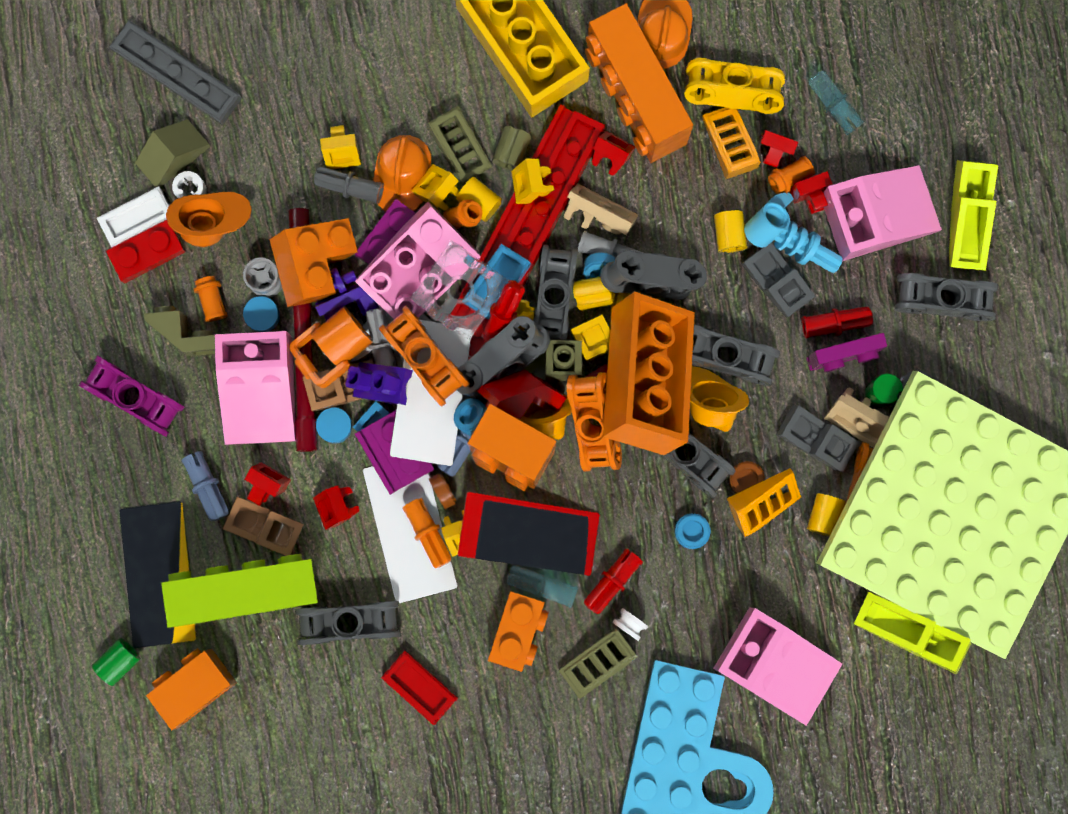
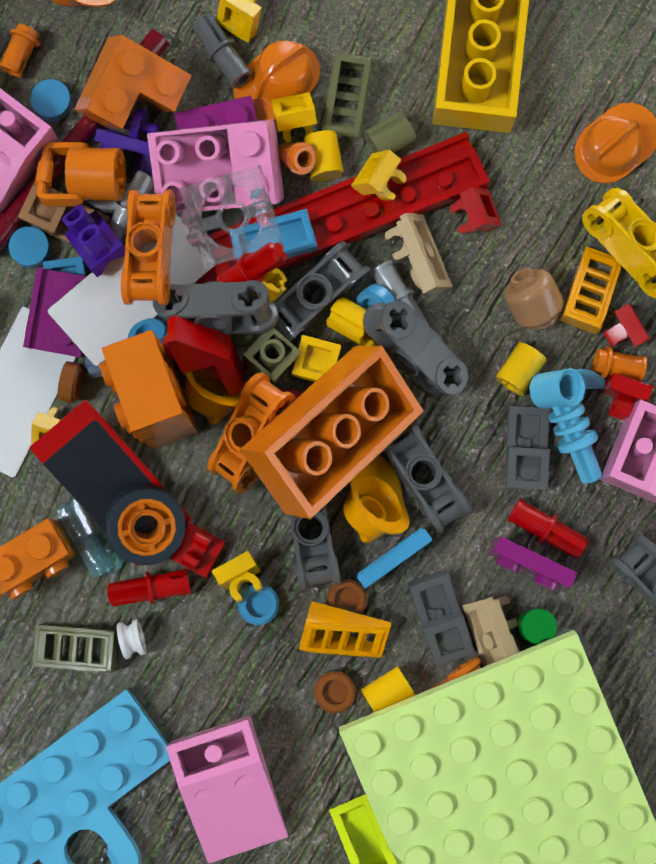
camera: 40 degrees right, 0 degrees up
(257, 273) = (74, 60): light grey wheel -> none
(427, 532) = (26, 406): orange axle -> none
(594, 541) = (145, 547): none -> wheel
(622, 529) = (198, 550): none -> red tile
(638, 84) = (550, 167): orange brick -> none
(662, 522) = (236, 572): none -> yellow tile
(700, 178) = (533, 298): none -> medium nougat head
(754, 425) = (393, 557): none -> dark azure tile
(790, 545) = (334, 691): none -> dark orange tile

